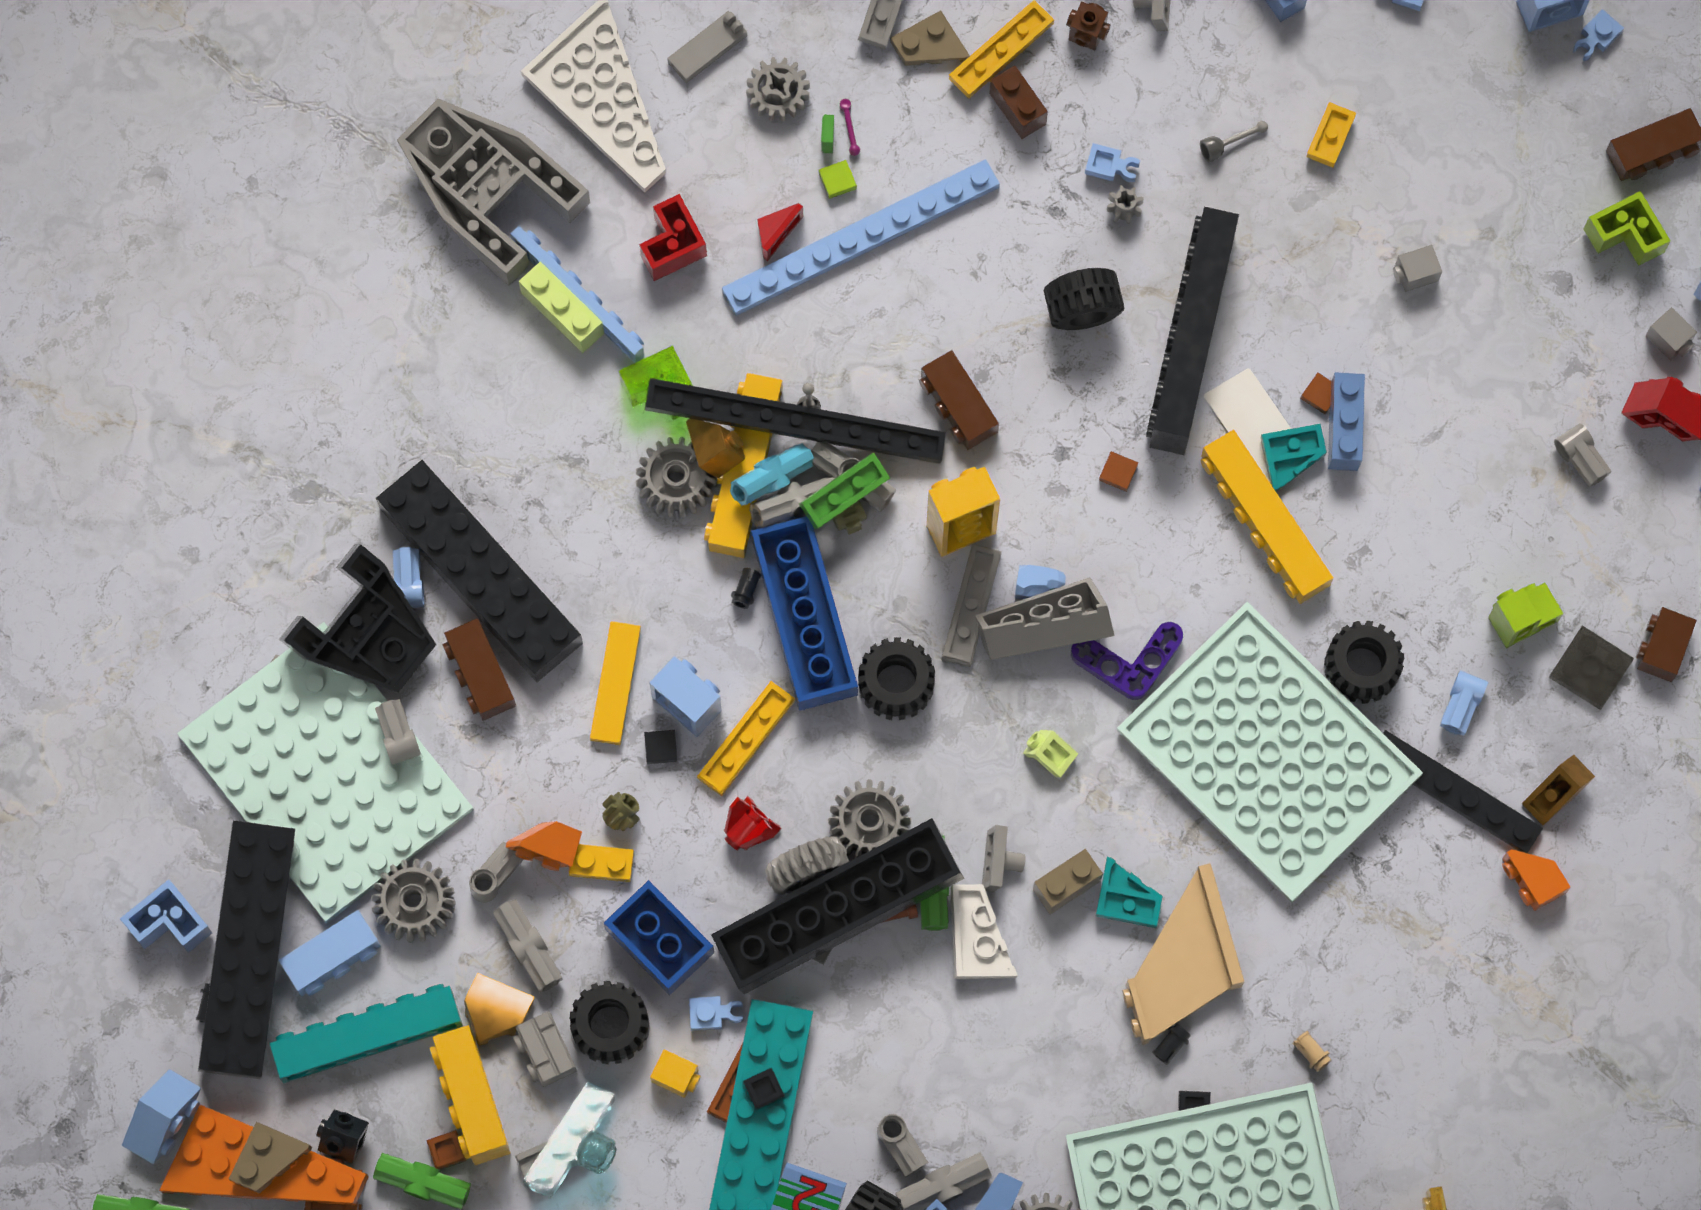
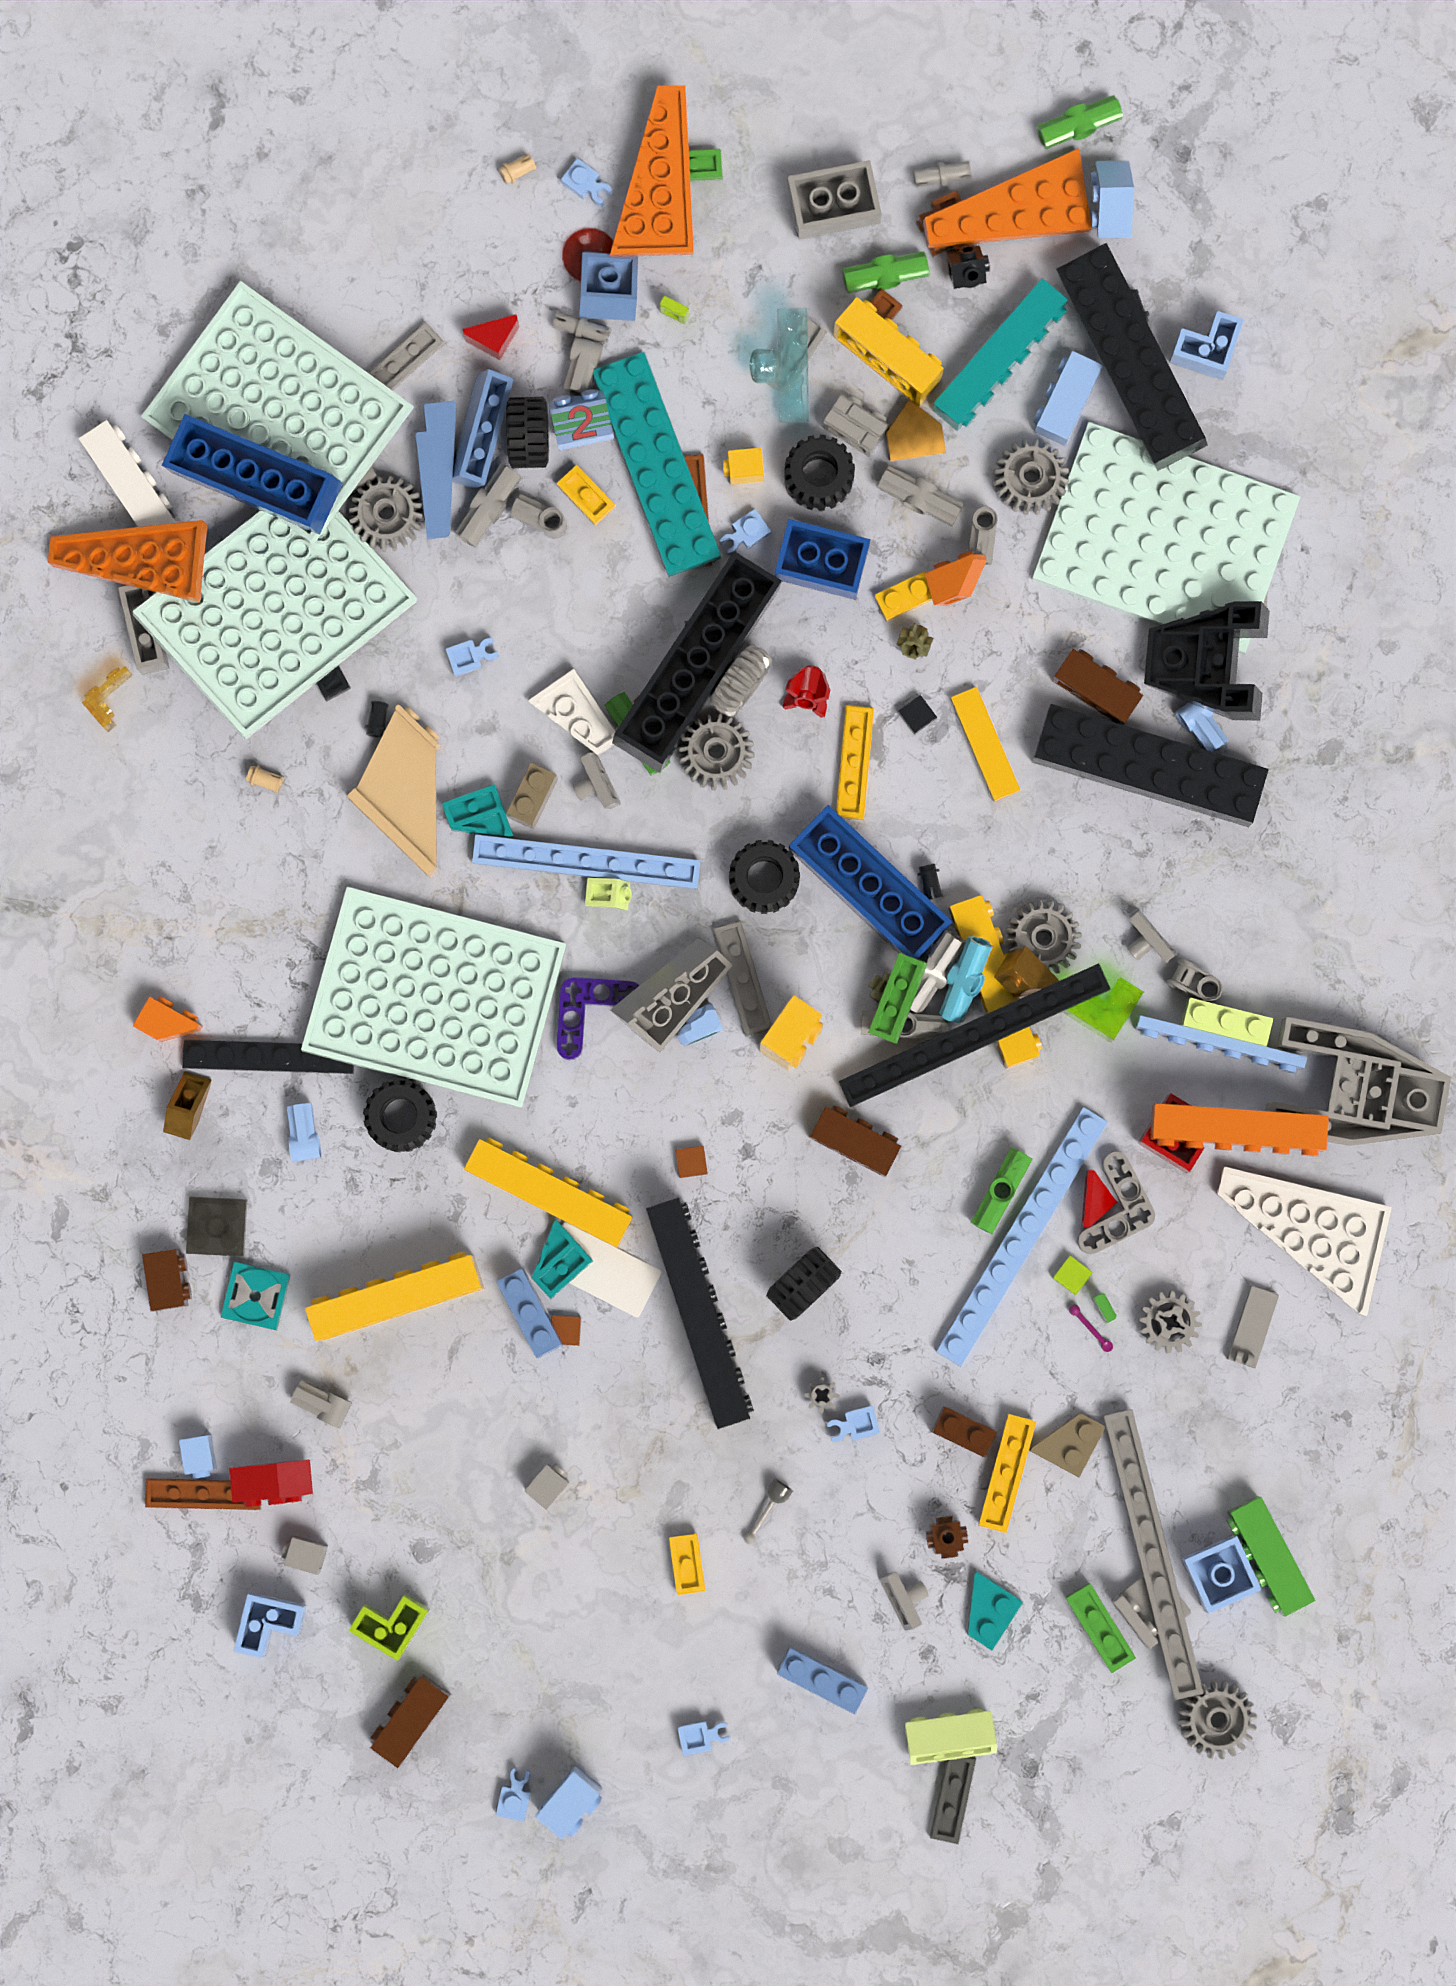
camera: 150 degrees right, 10 degrees up
(266, 1156) = (1013, 212): dark tan wing -> none
(399, 739) = (1122, 589): light grey piece -> none
(568, 362) = (1193, 981): none -> light grey piece
(580, 420) = (1149, 939): none -> light grey tile
(613, 199) = (1239, 1128): none -> orange brick
(686, 696) = (920, 760): light blue brick -> none
(749, 206) = (1129, 1206): none -> light grey beam
(764, 1088) = (668, 490): black tile -> none
(809, 400) = (976, 1062): light grey hinge -> none
(843, 1139) = (585, 495): none -> yellow plate
(871, 273) = (992, 1207): none -> bright green piece
(1052, 1051) = (466, 657): none -> light blue plate
(1053, 793) = (586, 862): none -> light blue plate
(1463, 502) = (395, 1297): none -> yellow brick
(1524, 613) = (293, 1235): lime brick -> none
(1577, 597) = (260, 1312): none -> teal piece

